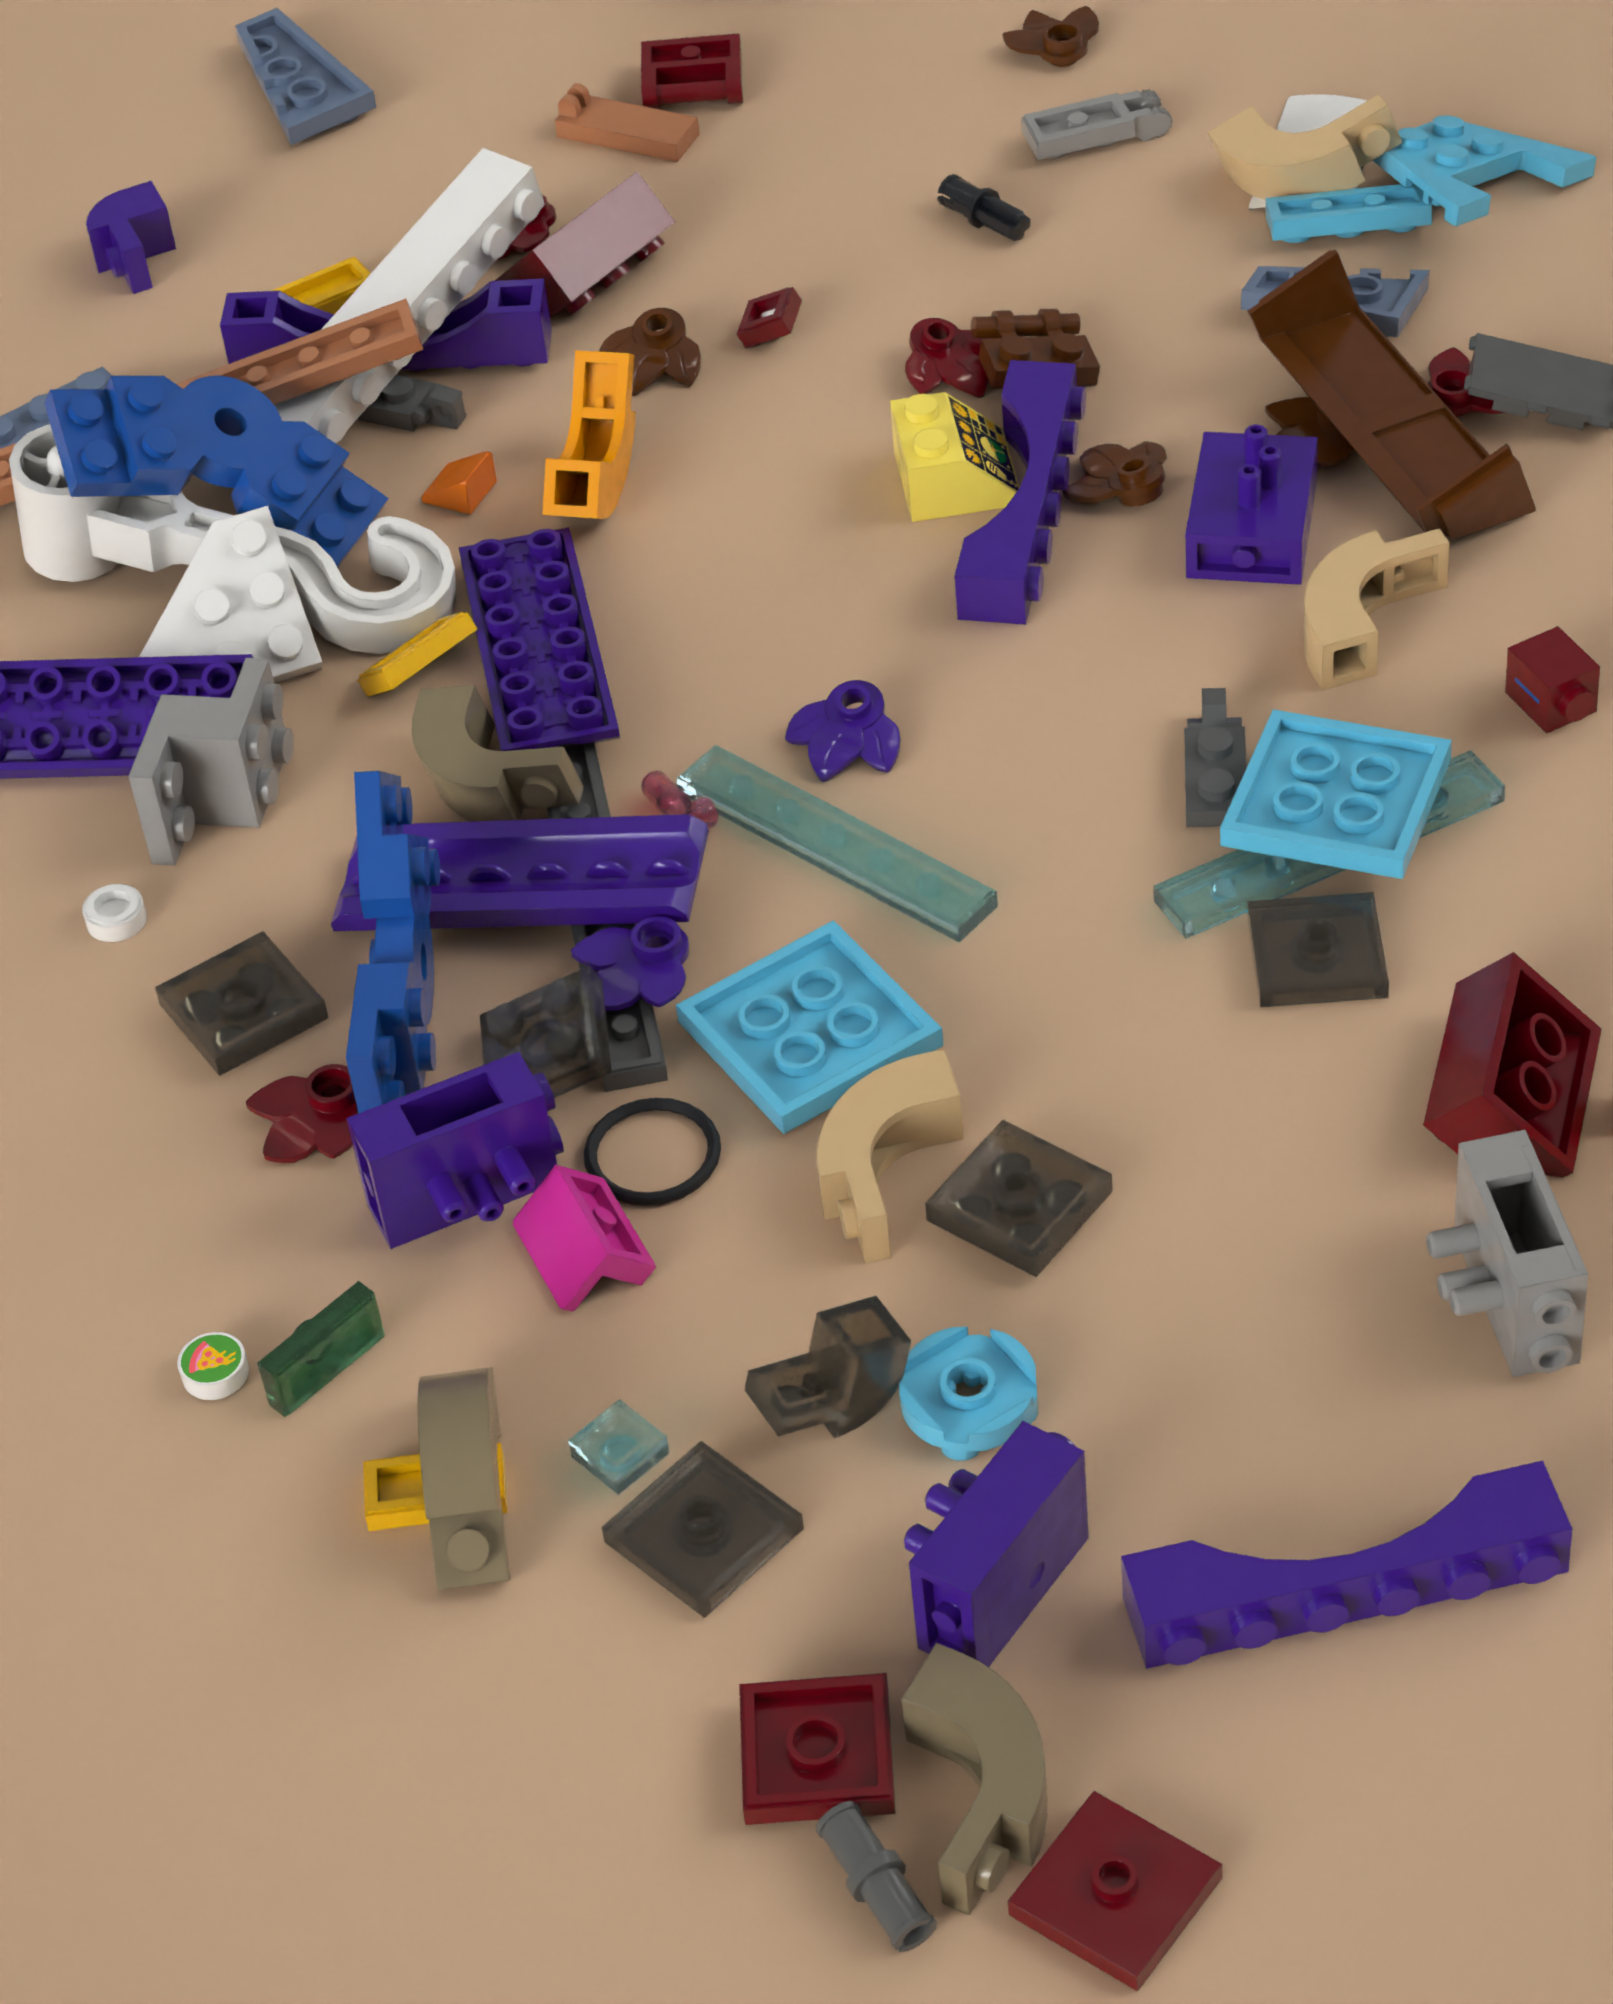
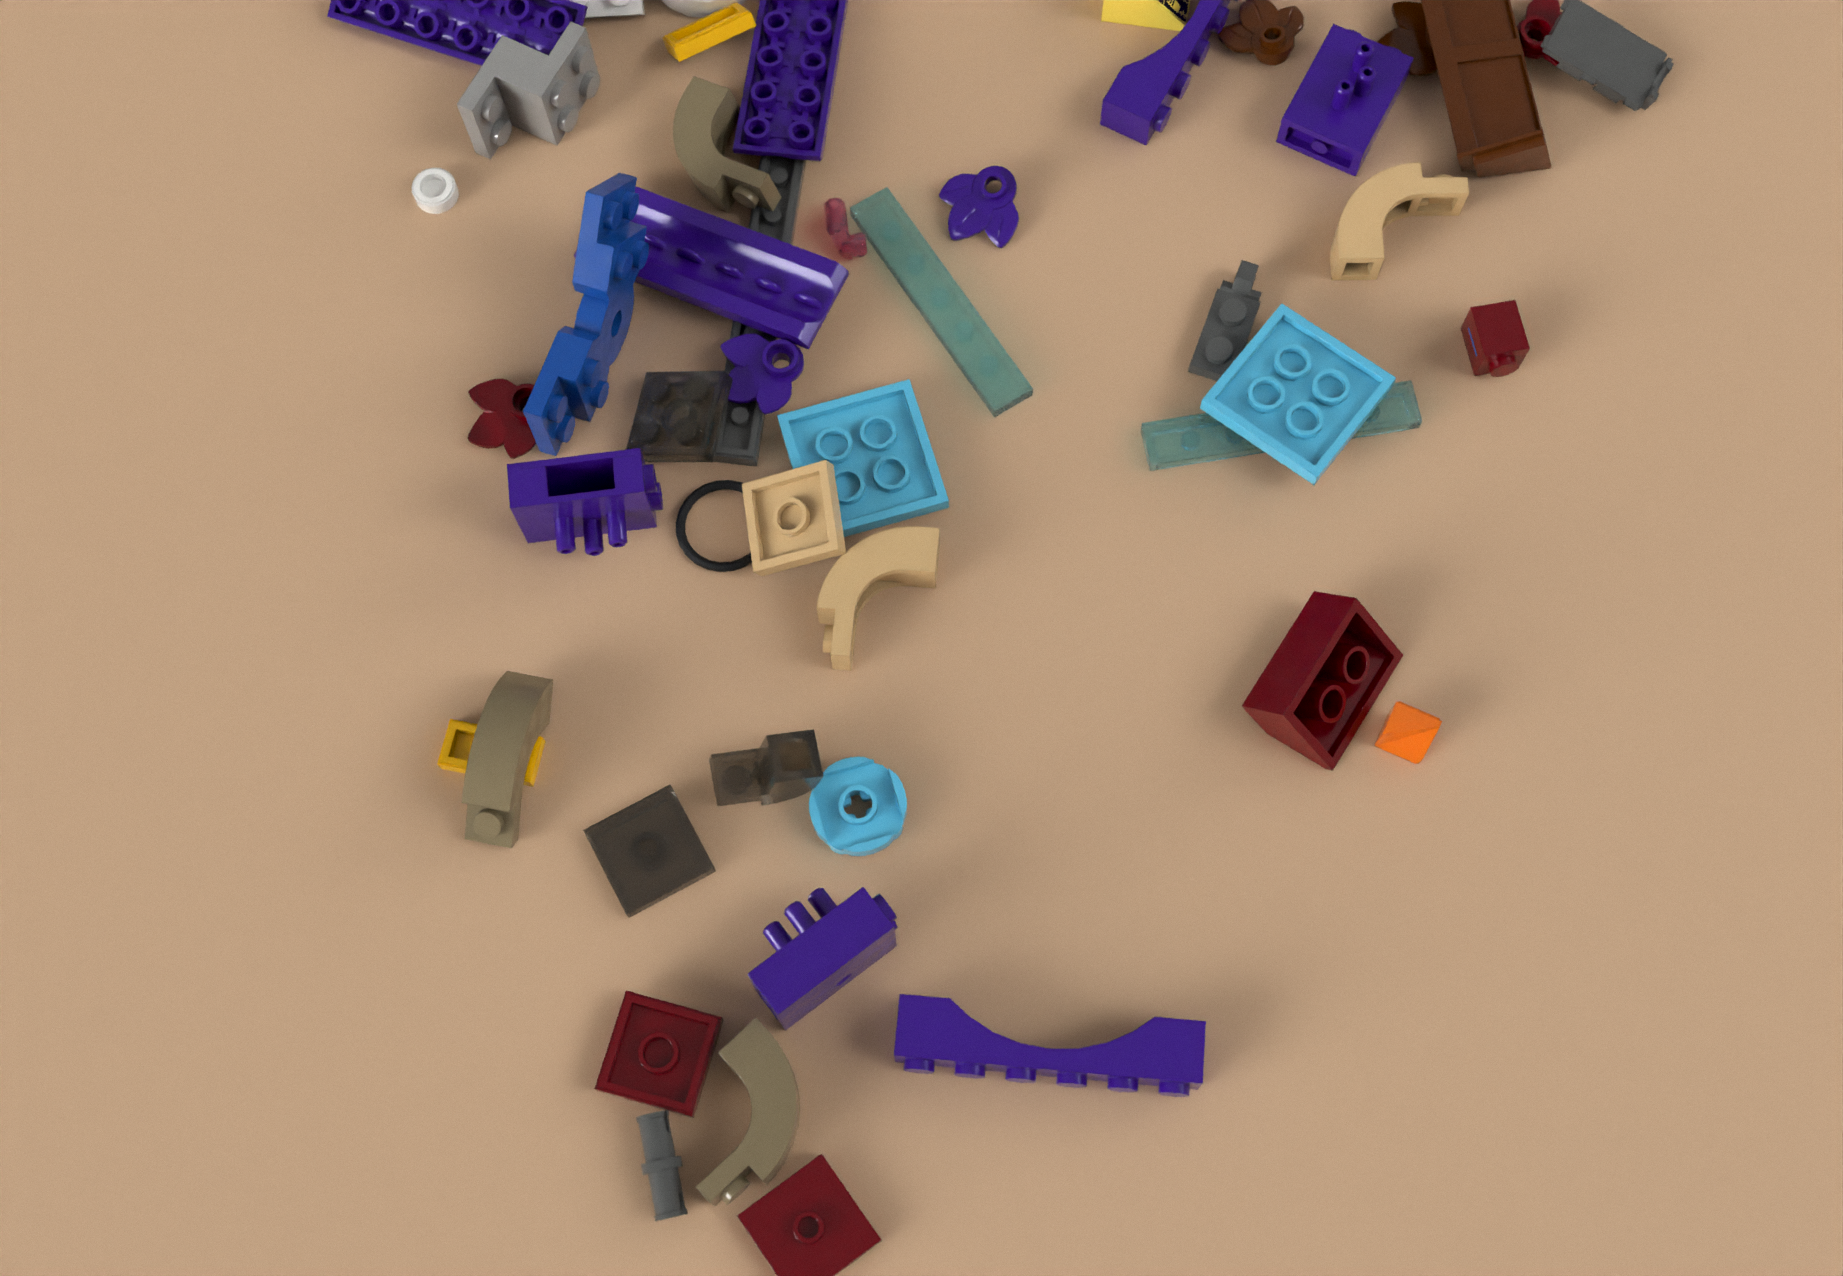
camera: 15 degrees right, 25 degrees up
(213, 1366) = (381, 603): tile -> none
(241, 1003) = (491, 304): clear smoke plate -> none
(321, 1349) = (450, 620): clear green plate -> none
(579, 1235) = (651, 586): dark pink panel -> none
(619, 1446) = (615, 769): clear light blue plate -> none
(747, 1096) = (793, 518): none -> tan plate
(1019, 1197) = (949, 660): clear smoke plate -> none
(1317, 949) = (1234, 516): clear smoke plate -> none
(1516, 1255) = (1257, 846): light grey piece -> none

